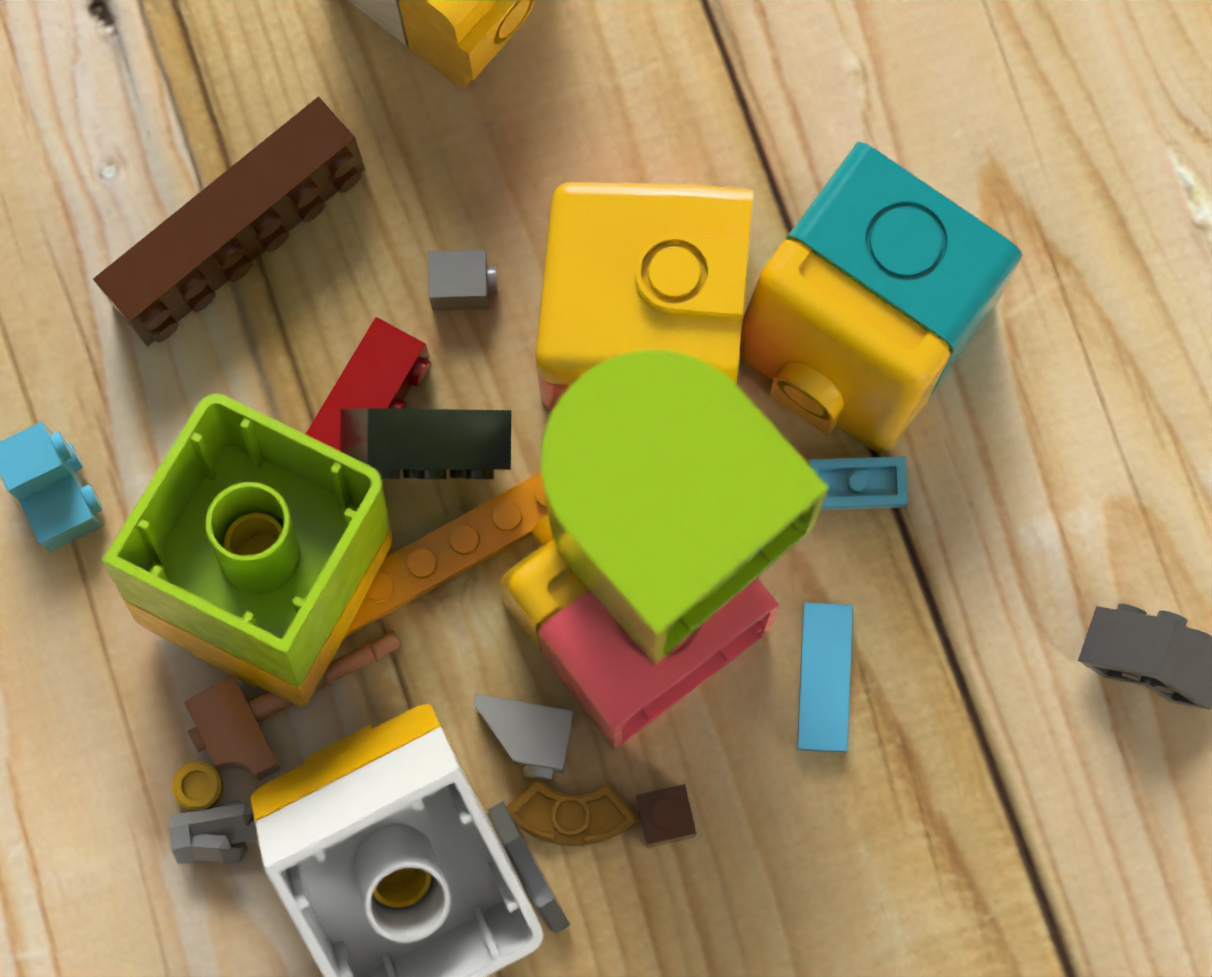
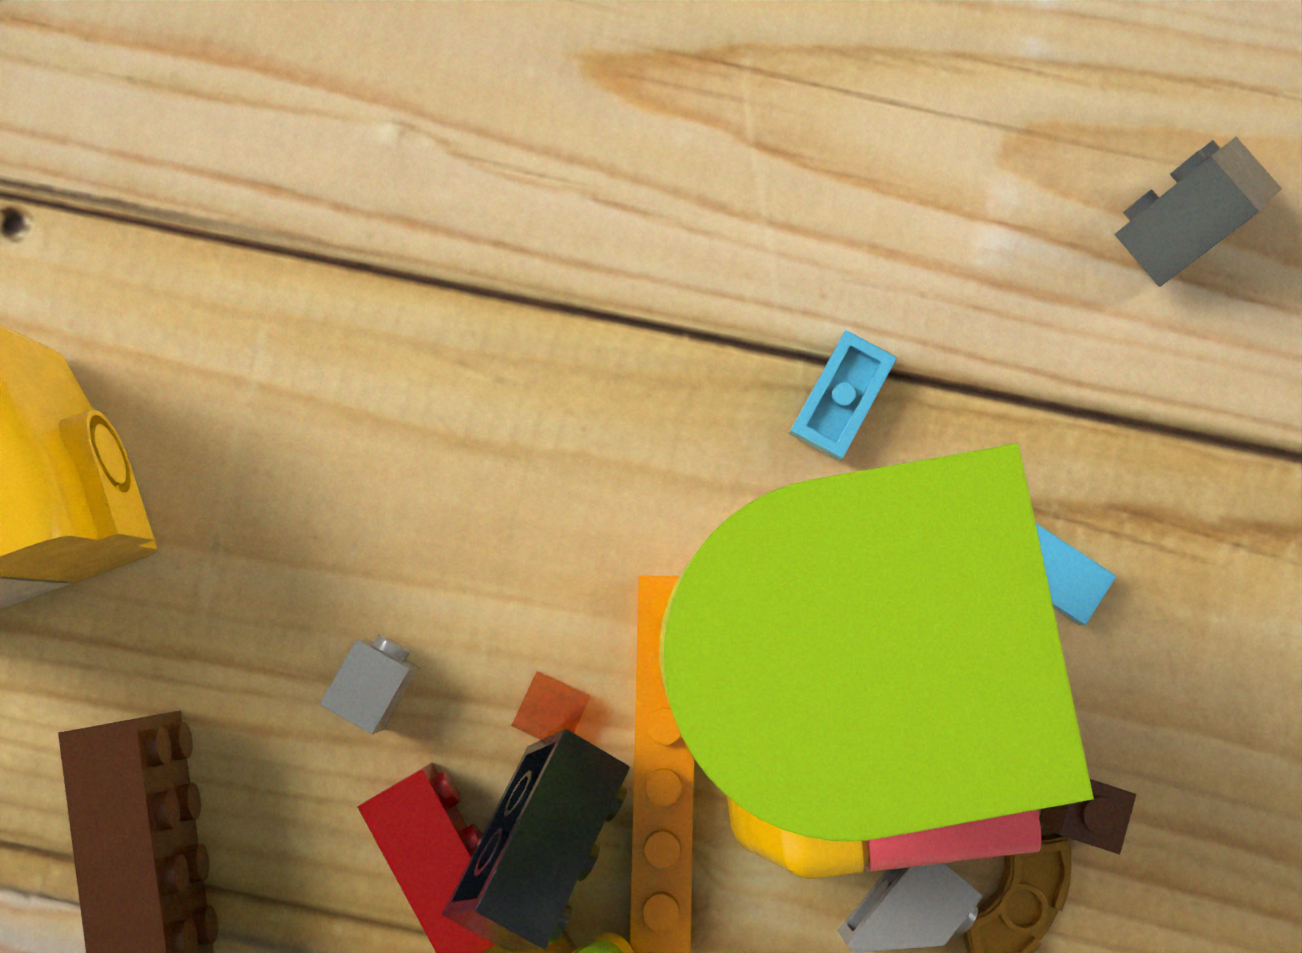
camera: 65 degrees left, 5 degrees up
(523, 409) = (550, 707): none -> clear orange plate
(640, 274) = (525, 496): yellow piece -> none
(872, 299) = (681, 246): piece -> none

